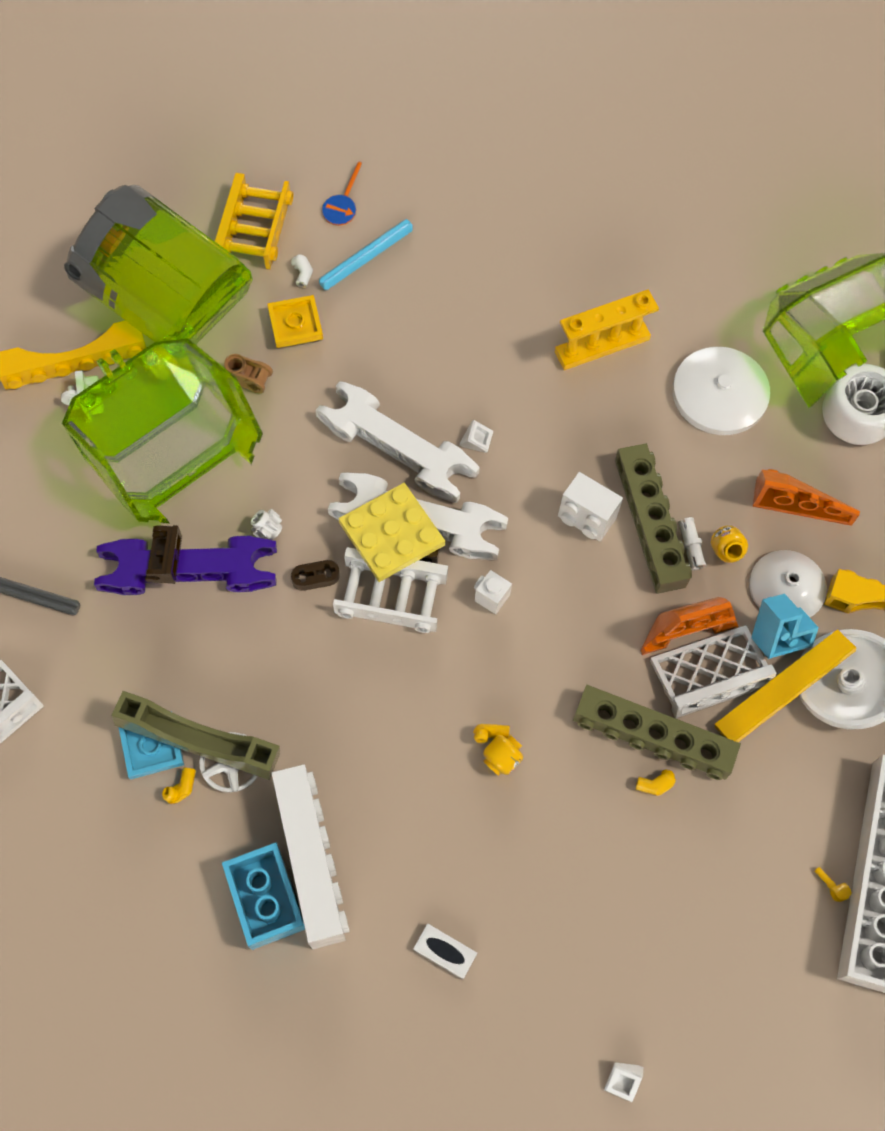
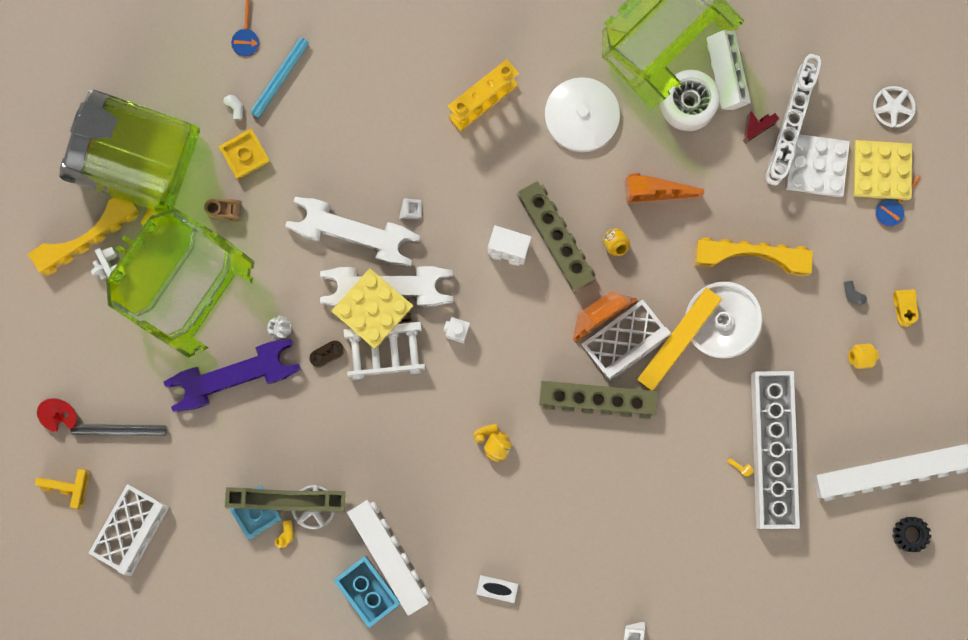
camera: 15 degrees left, 15 degrees up
(164, 554) = (215, 376): dark brown hinge -> none
(235, 207) = (164, 68): yellow fence -> none
(657, 786) = (609, 434): yellow arm -> none
(692, 543) = (589, 248): white pin -> none
(772, 576) = (658, 269): white dish -> none
(782, 627) = (668, 297): medium azure brick -> none

